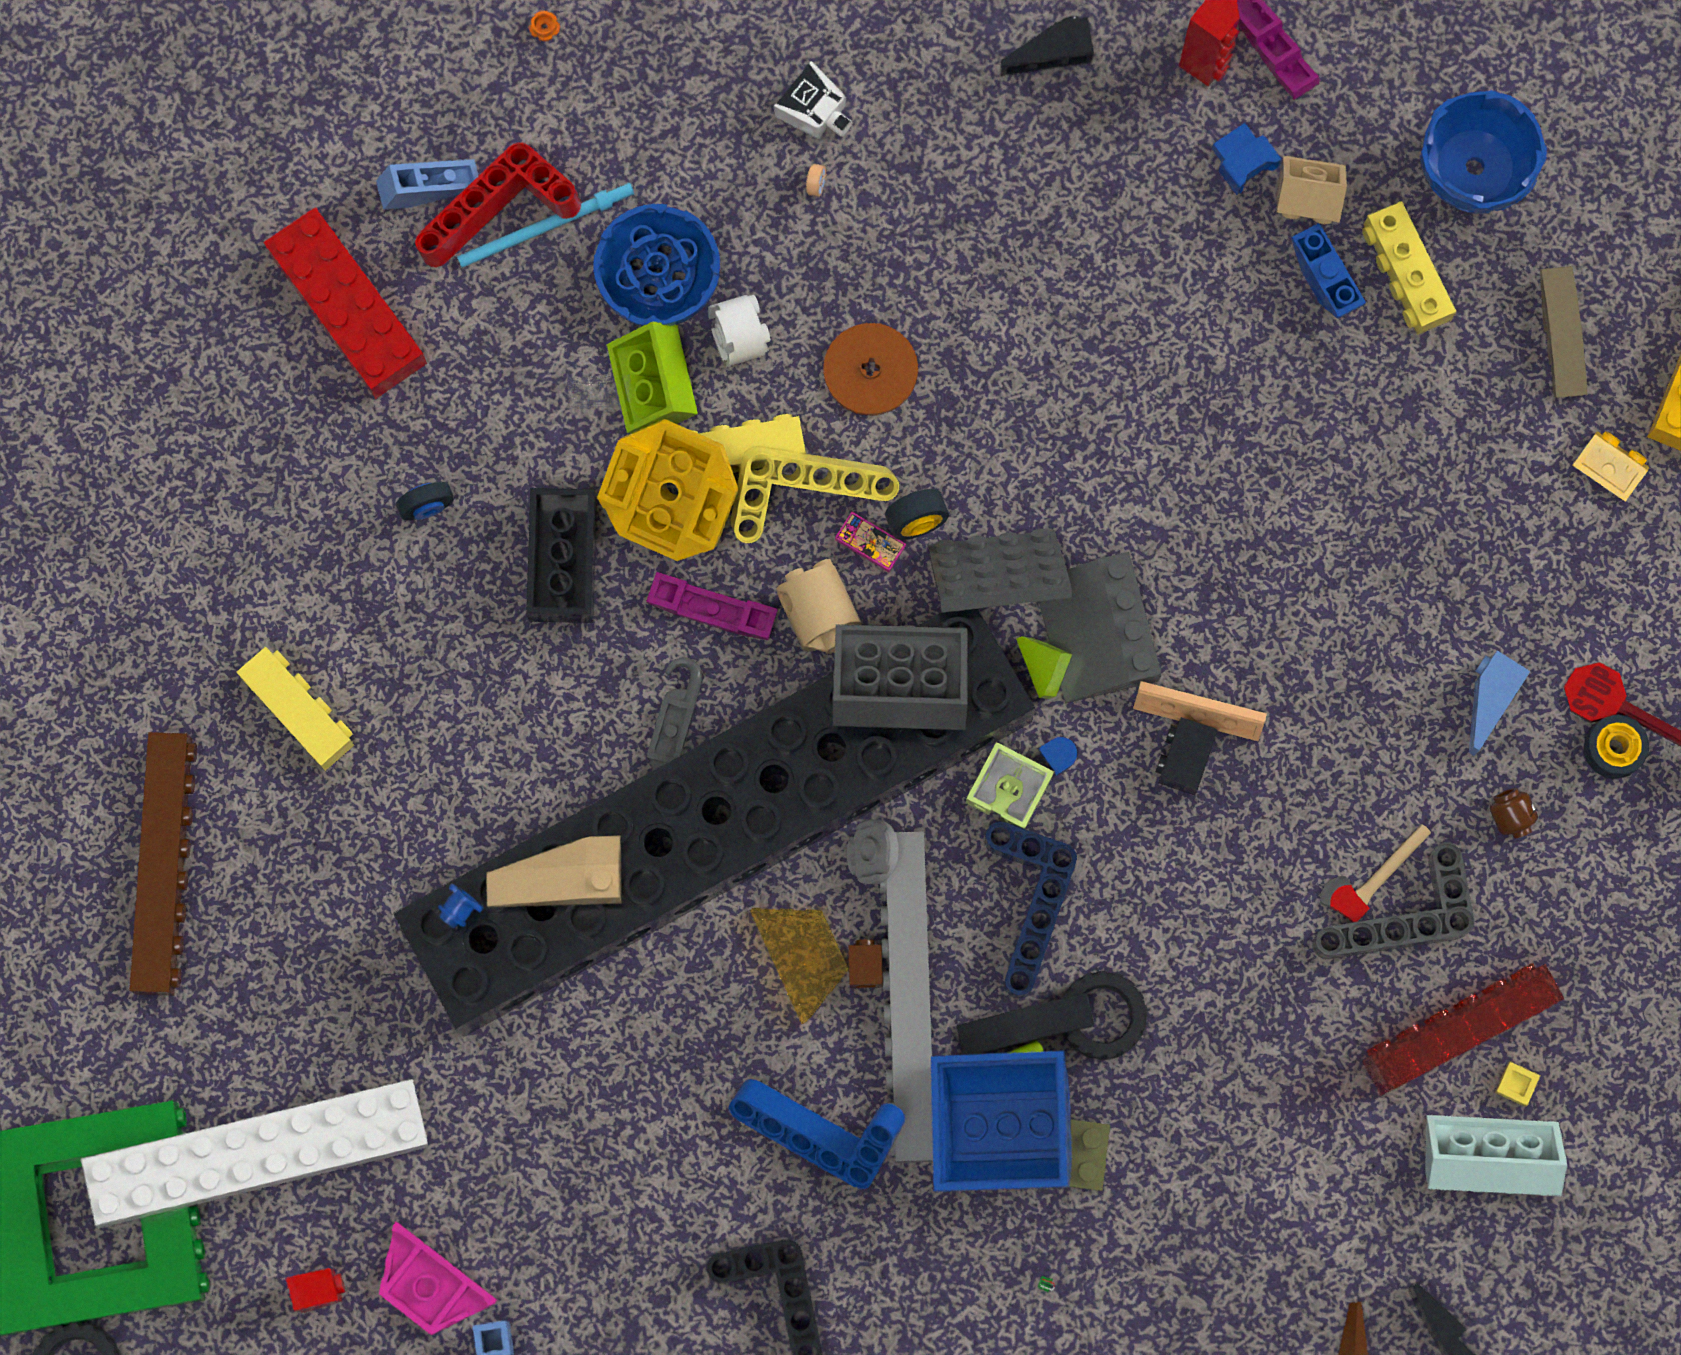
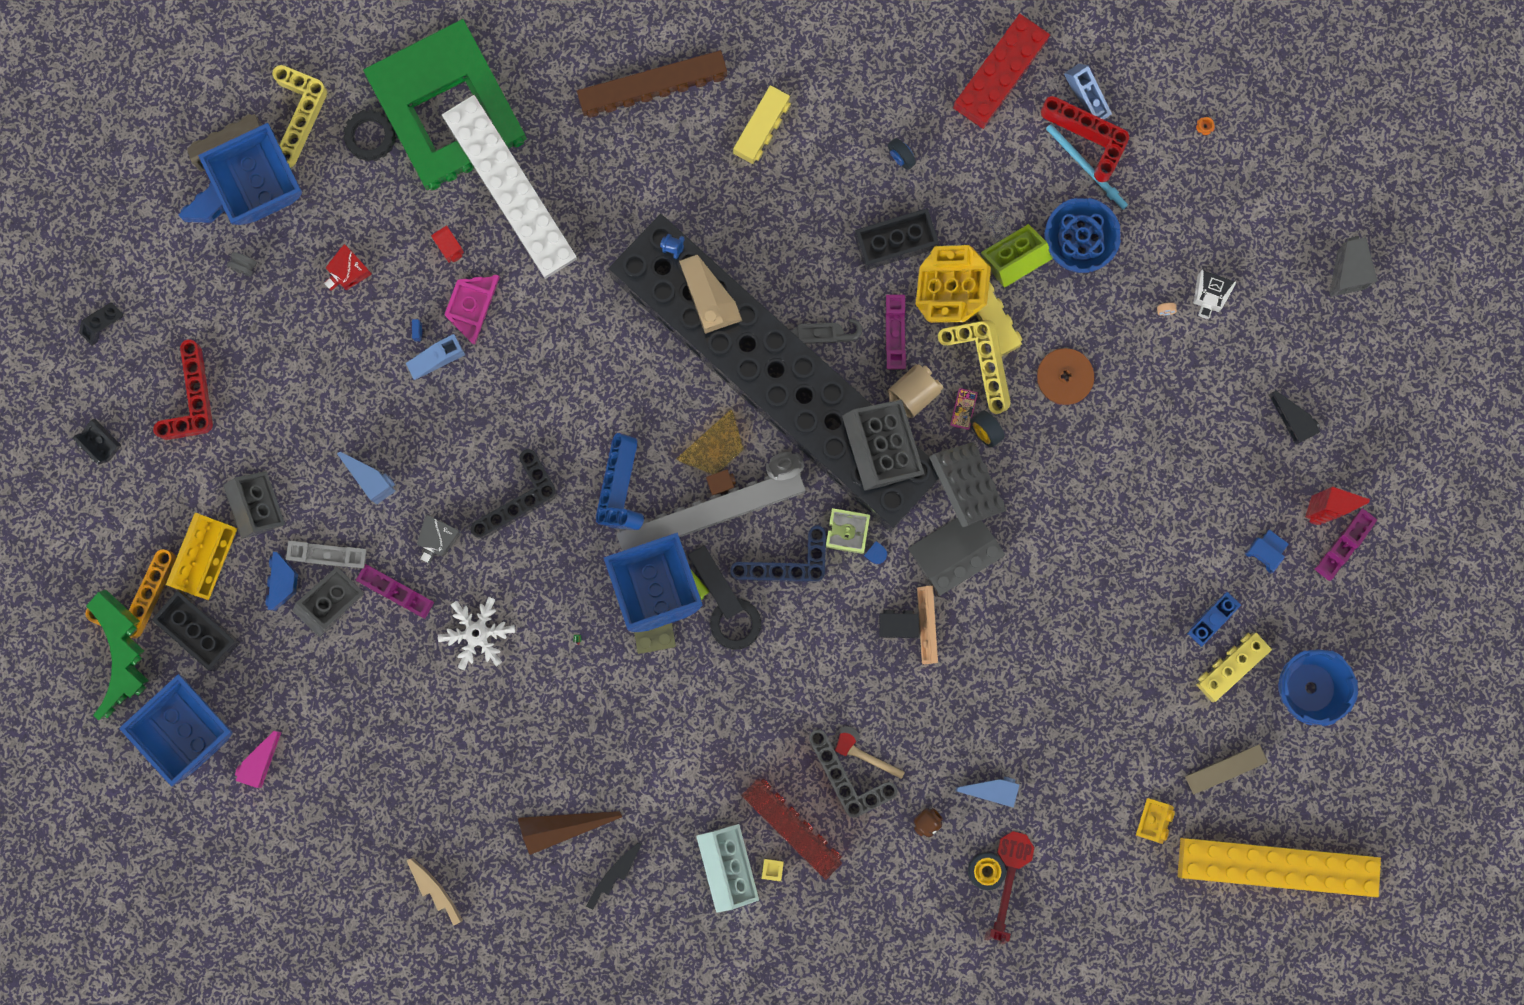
camera: 70 degrees right, 5 degrees up
(738, 329) = (1060, 293): white brick -> none
(1045, 665) = (925, 528): lime slope -> none
(1311, 190) = (1260, 594): tan brick -> none

